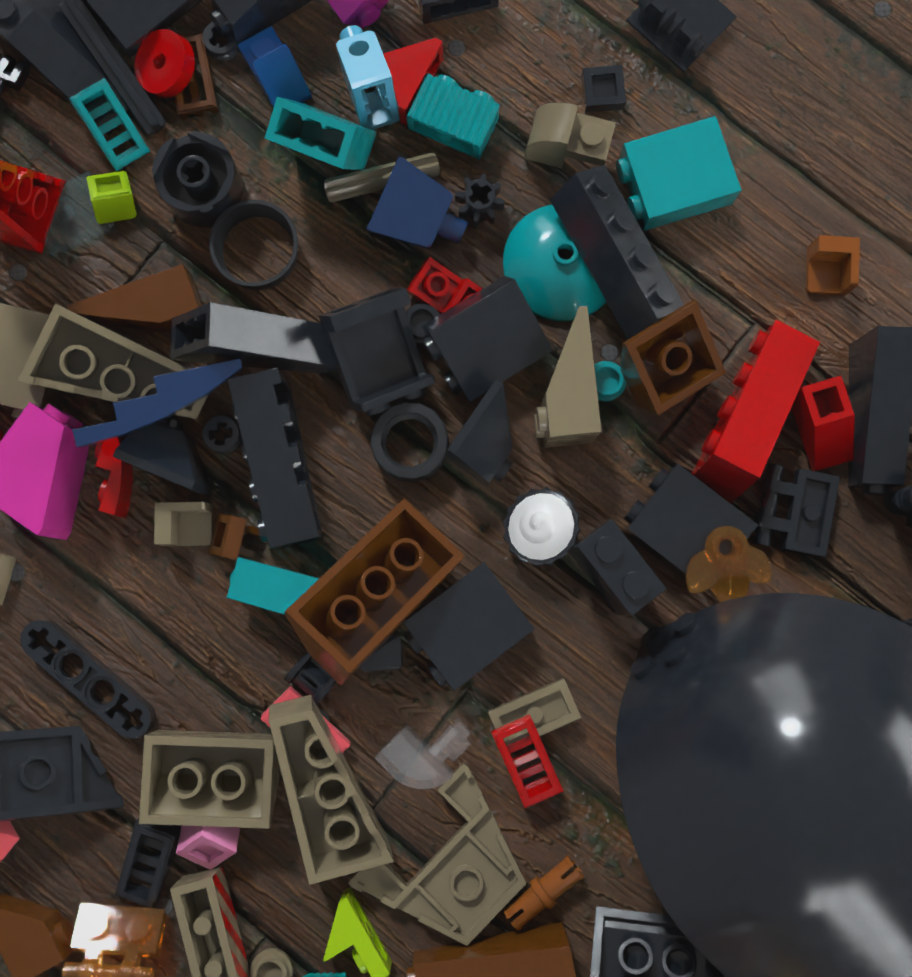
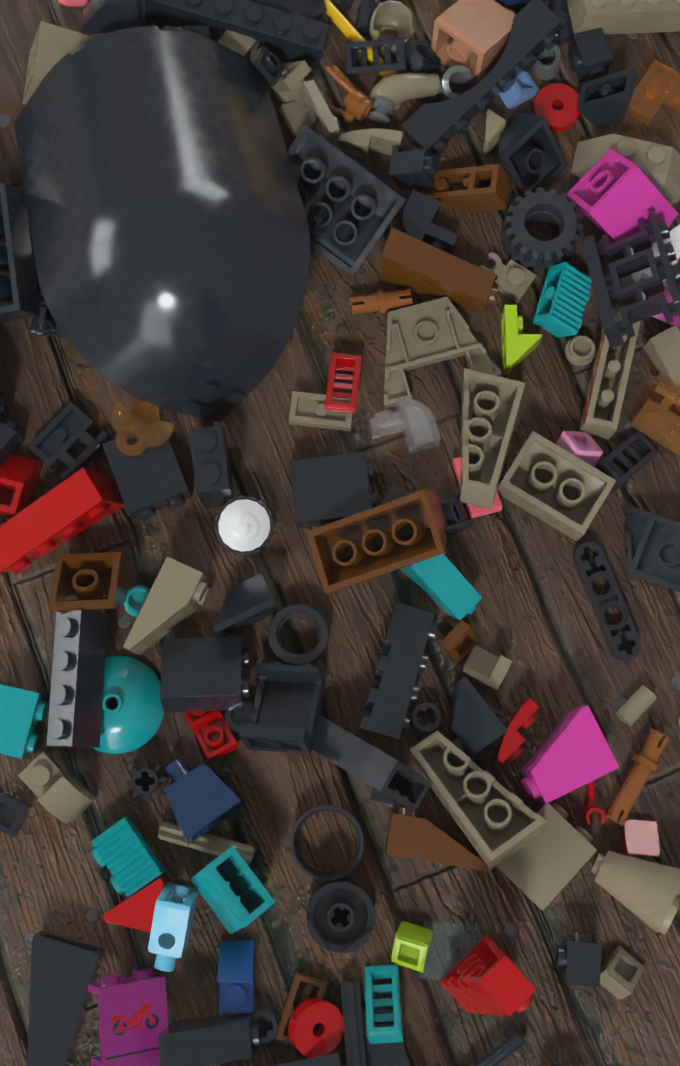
camera: 150 degrees left, 5 degrees down
(173, 394) = (441, 749): dark blue slope -> none

